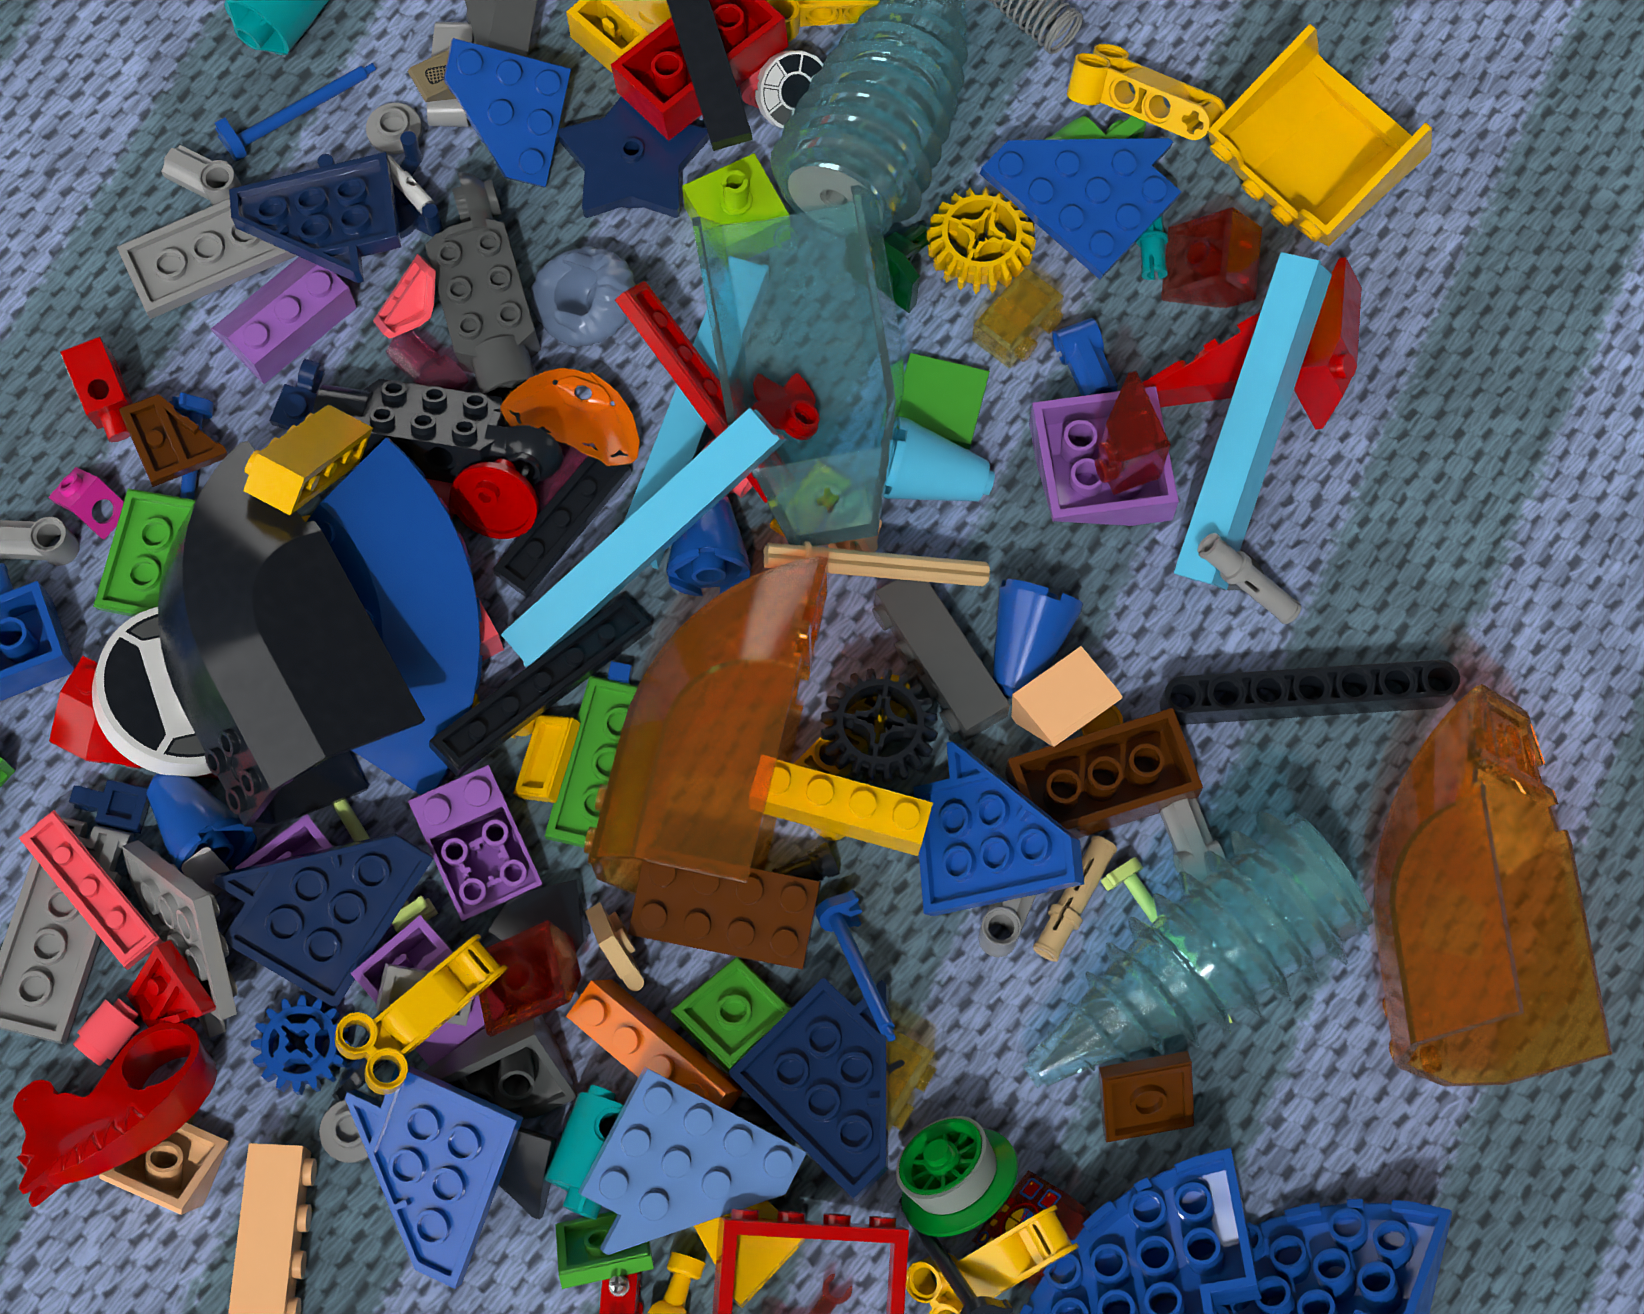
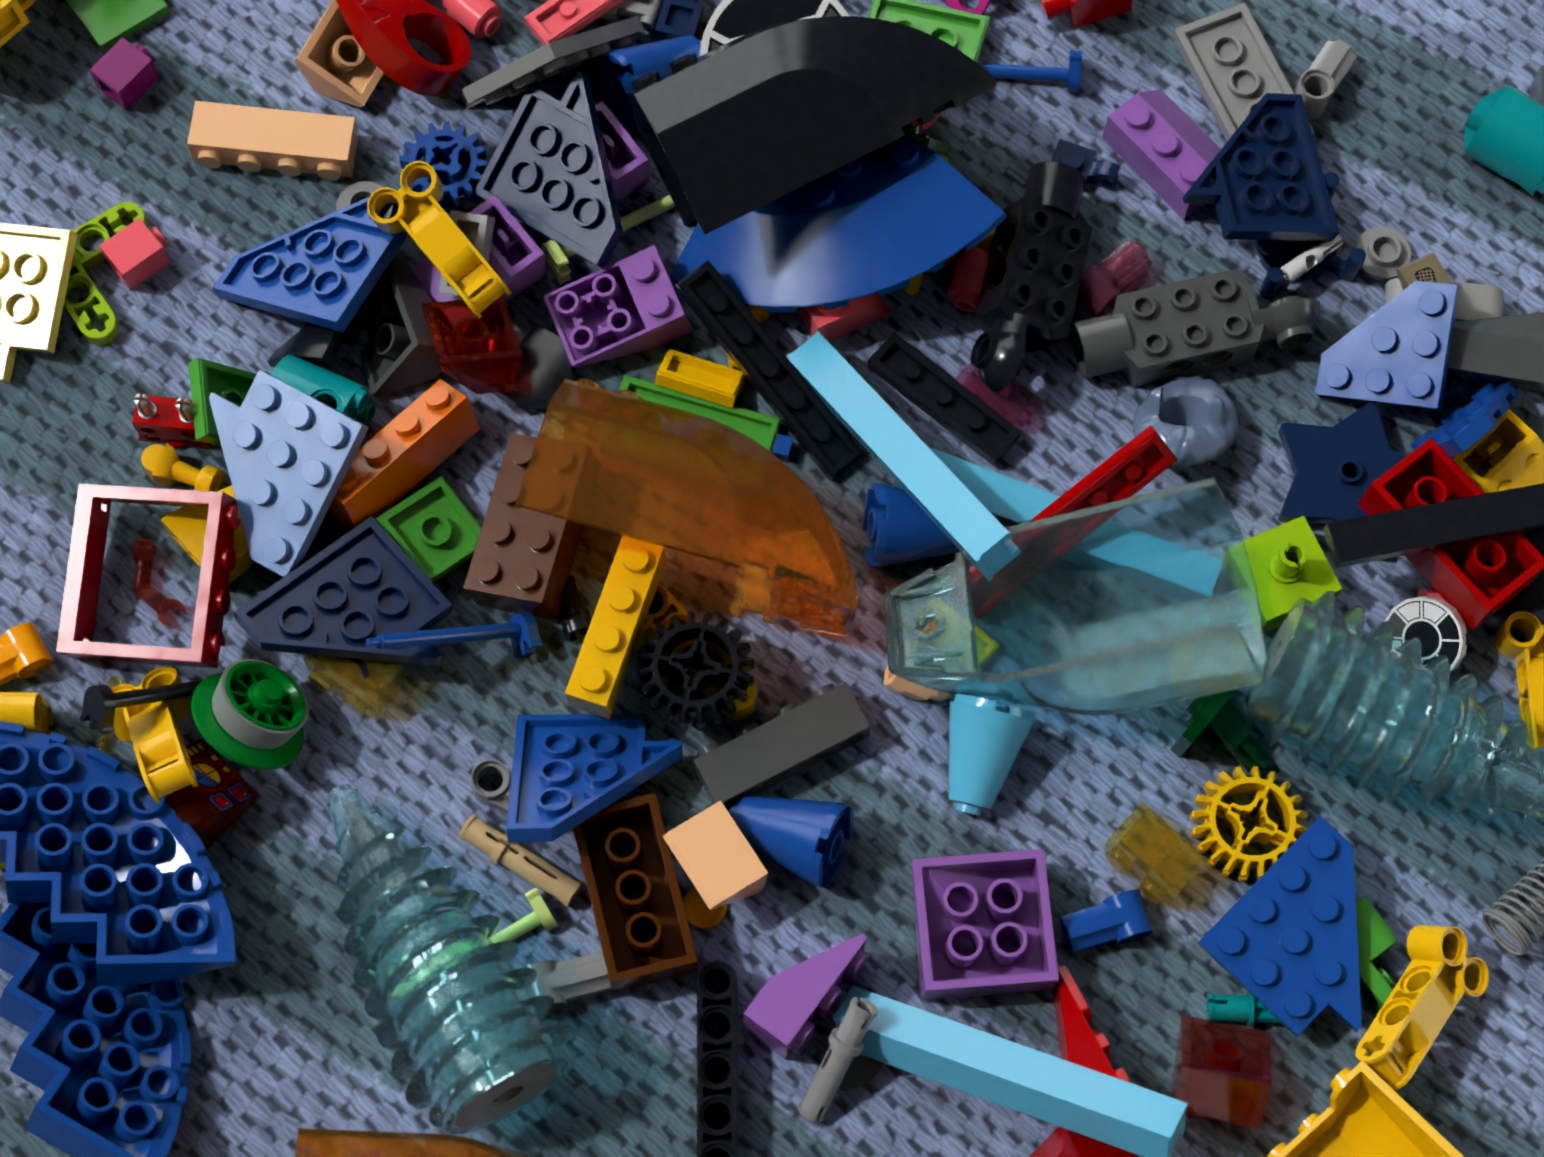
camera: 90 degrees right, 0 degrees up
(167, 440) = (1035, 46): reddish brown wing -> none
(168, 988) = (498, 52): red wing -> none
(203, 868) = (605, 81): white sticker -> none
(236, 142) = (1363, 107): blue piece -> none
(306, 459) = (976, 136): yellow brick -> none
(410, 301) = (1175, 258): coral slope -> none
(494, 499) = (958, 329): red piece -> none
(574, 419) = (1048, 406): orange piece -> none
(587, 44) = (1469, 424): none -> blue plate
(616, 945) = (497, 419): tan hinge -> none
(787, 407) = (1059, 605): red plate -> none
(883, 564) = (866, 677): tan axle -> none
(943, 397) = (1065, 771): bright green tile -> none
(1132, 441) = (984, 929): clear red slope -> none
(1146, 1096) = (309, 903): reddish brown tile -> none
(1191, 615) = (795, 997): none -> medium lavender slope

